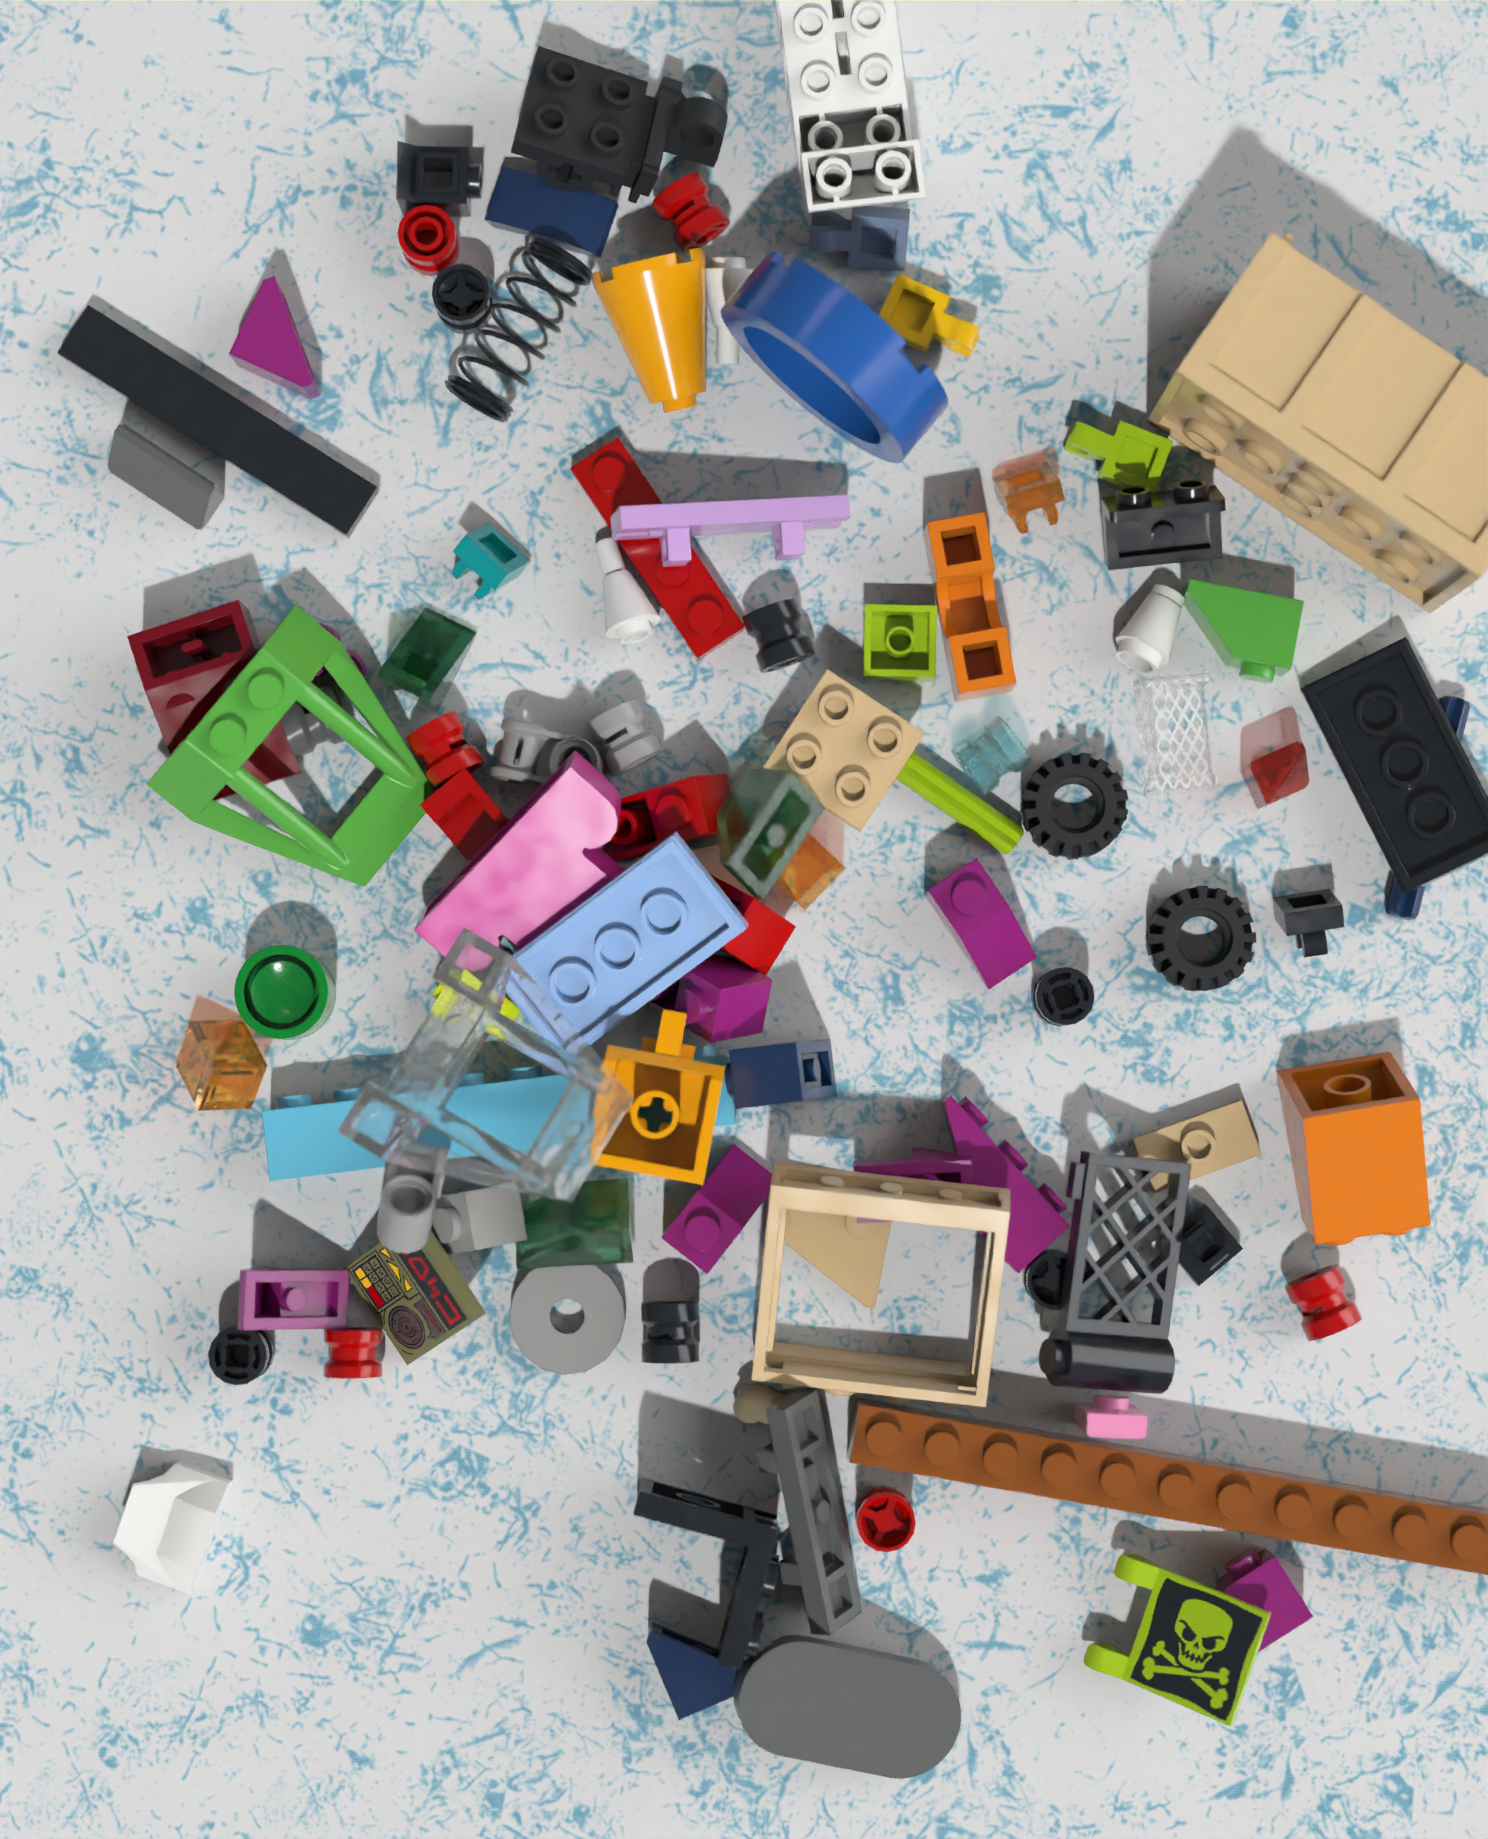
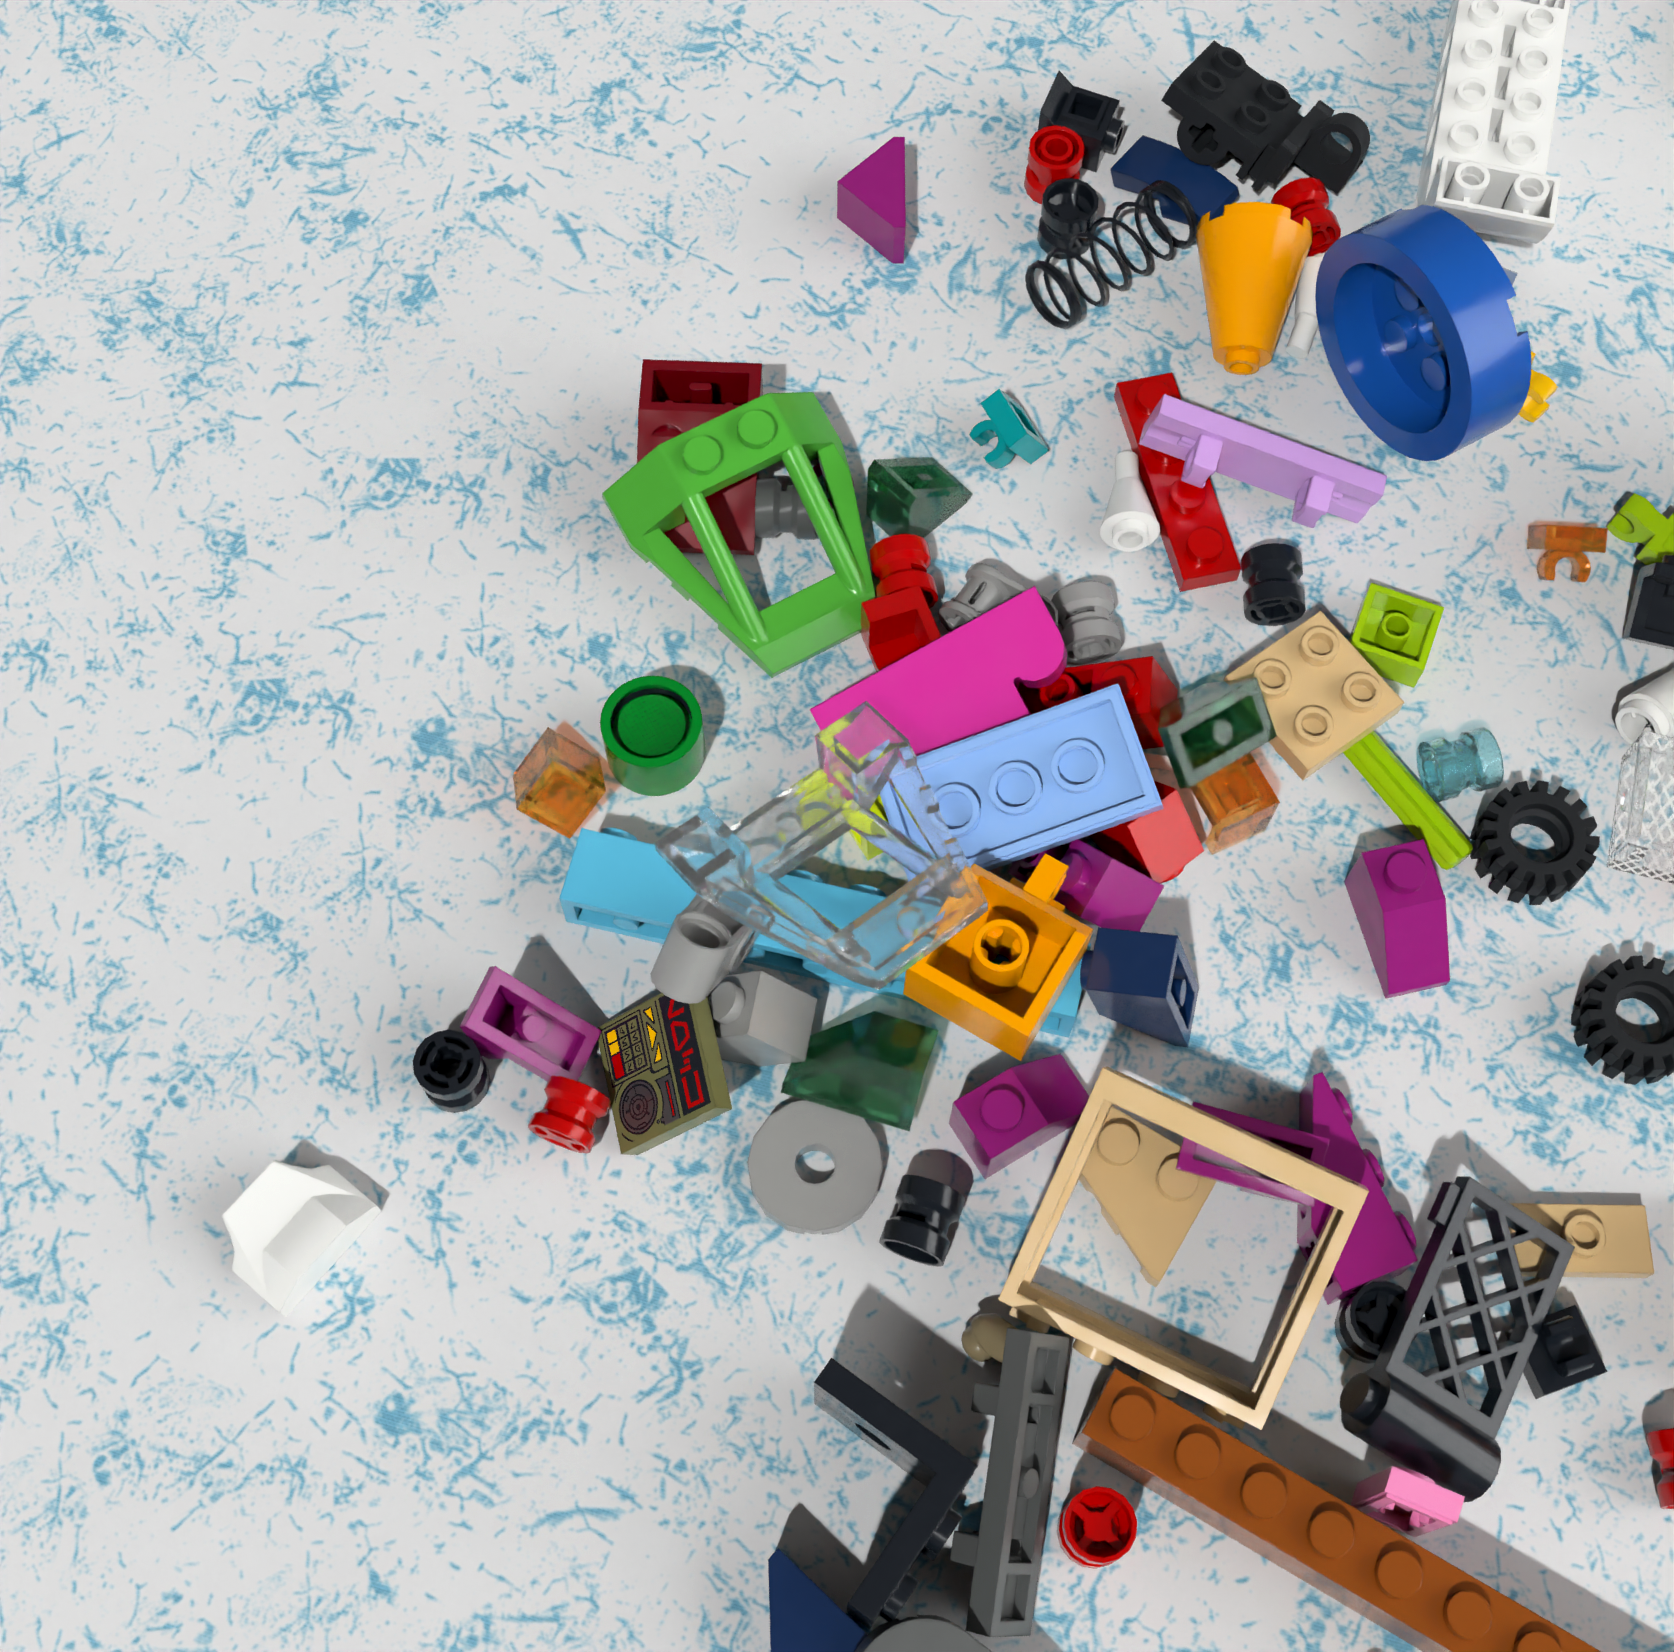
camera: 20 degrees right, 20 degrees down
(163, 477) = (733, 270): dark grey slope -> none
(218, 421) = (804, 251): black tile -> none
(967, 607) = (1474, 646): orange arch -> none
(1055, 1001) = (1460, 1035): black wheel -> none

